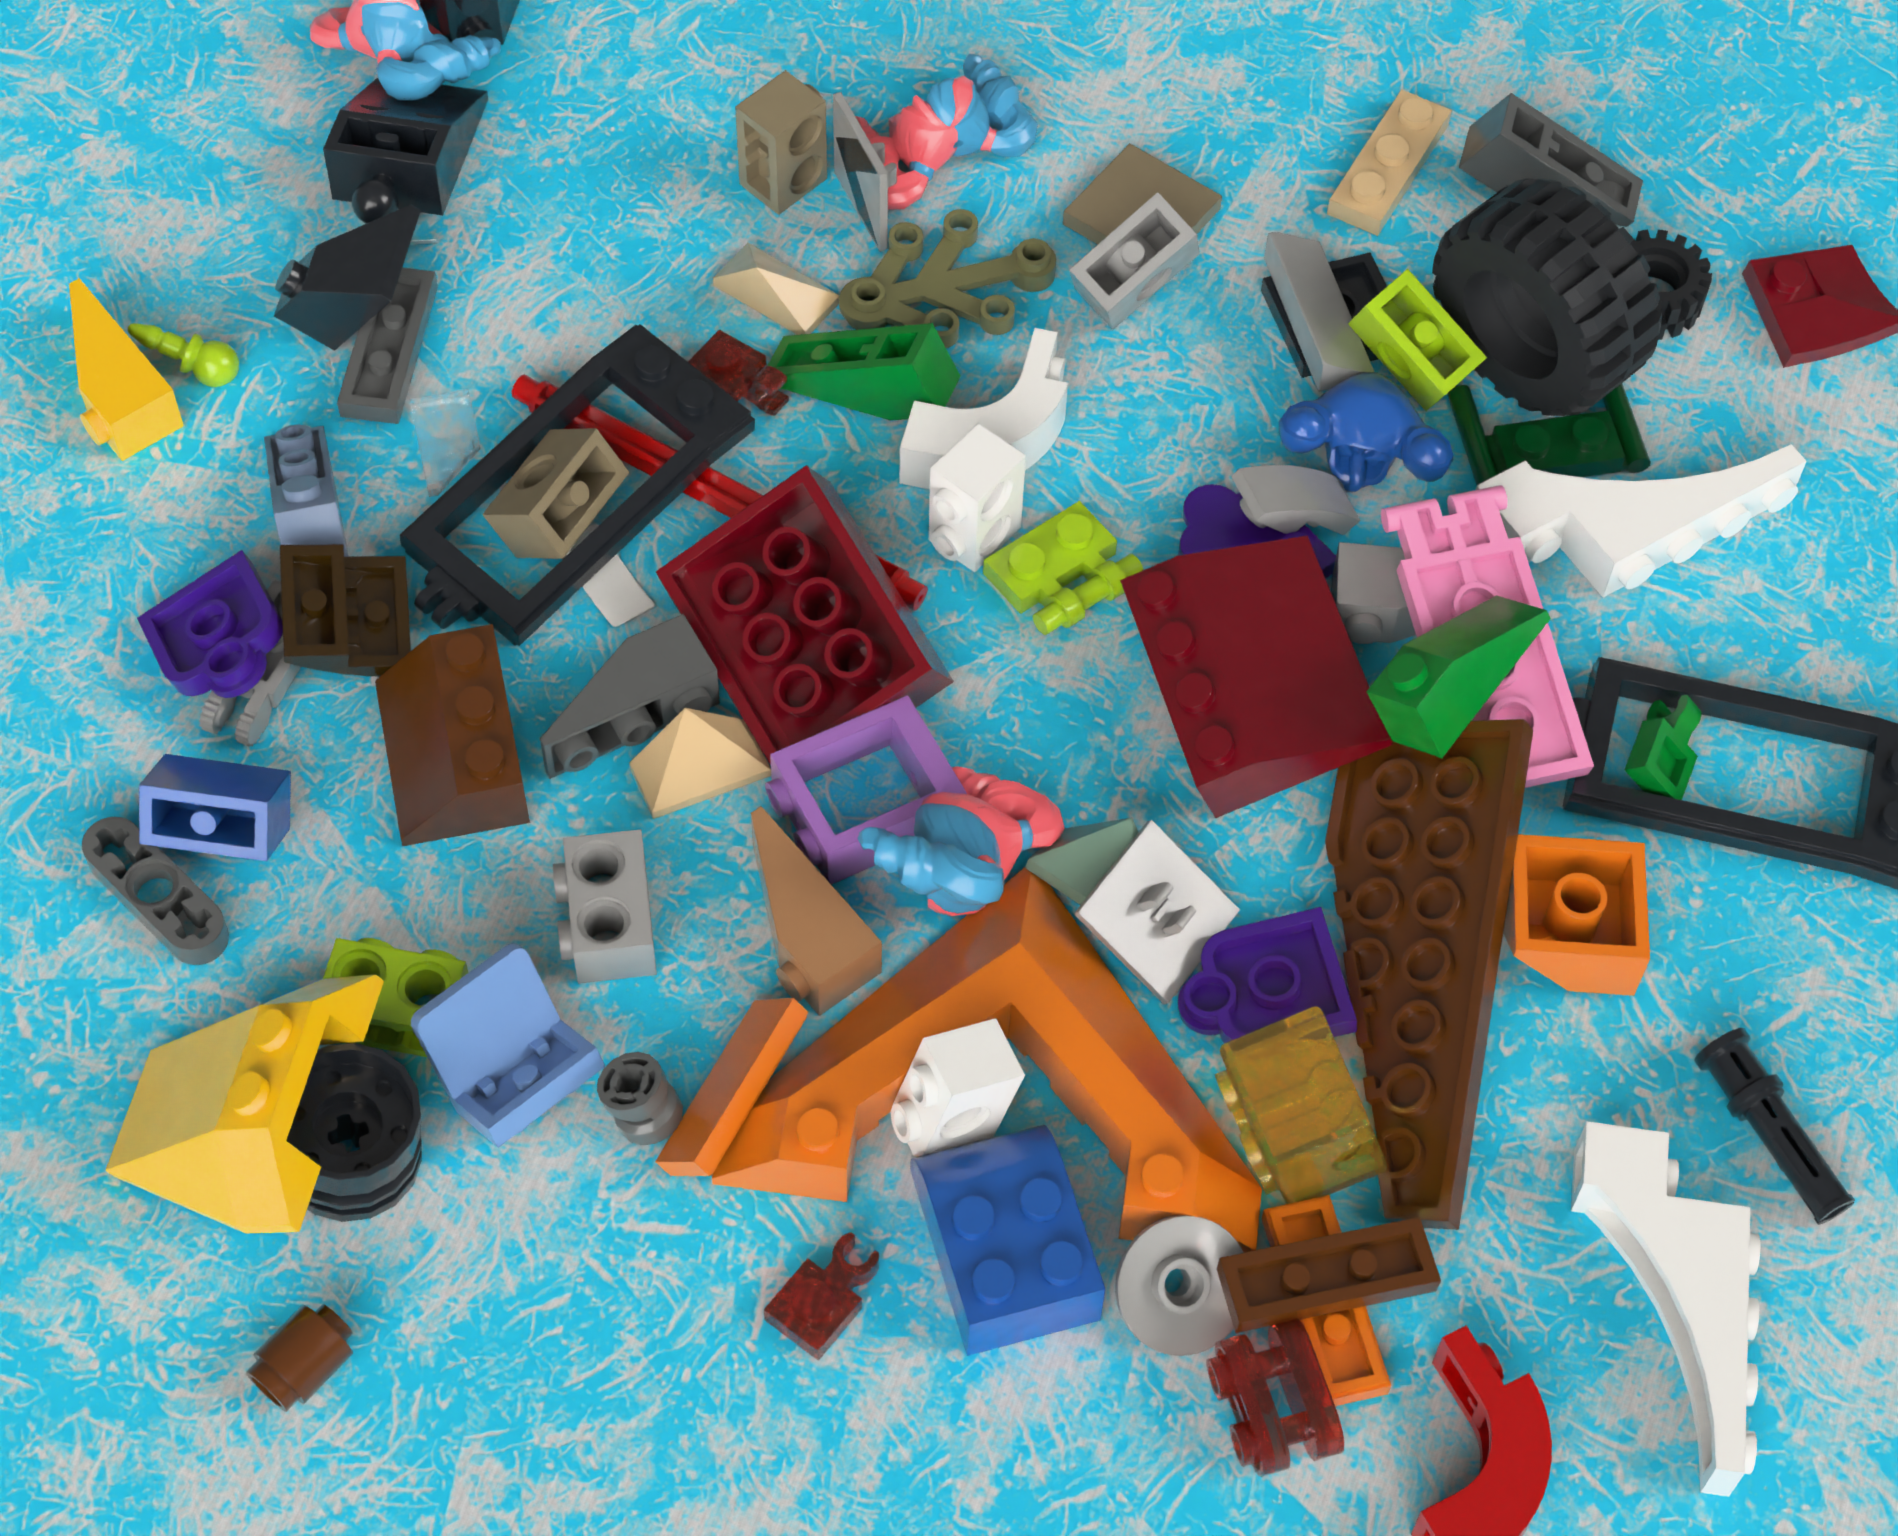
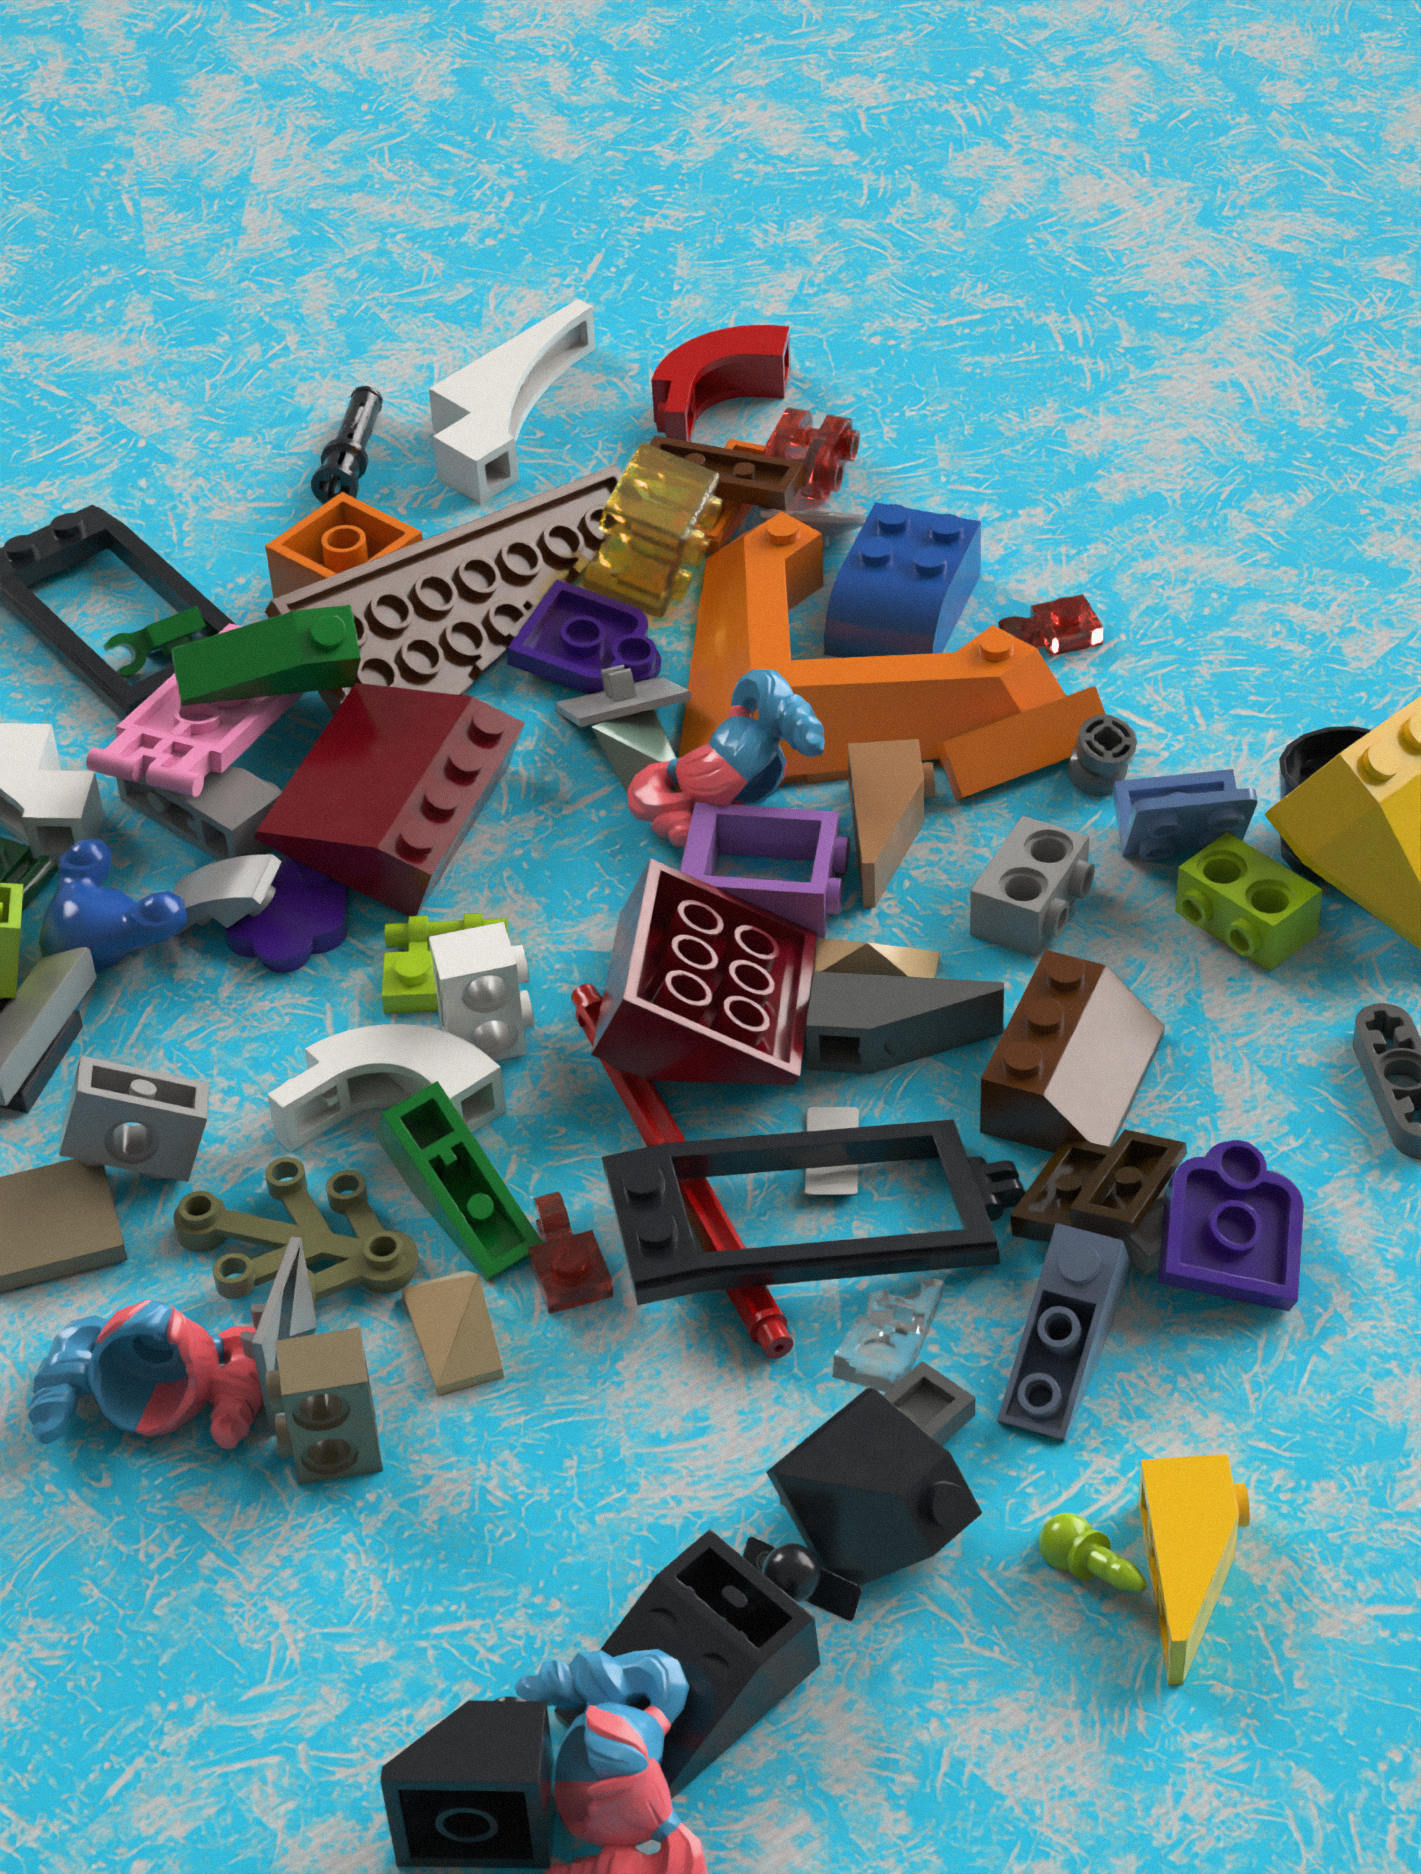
camera: 140 degrees left, 15 degrees down
(214, 807) = (1316, 1082): blue brick -> none
(556, 493) = (861, 1169): dark tan brick -> none
(956, 1089) = (873, 616): white brick -> none

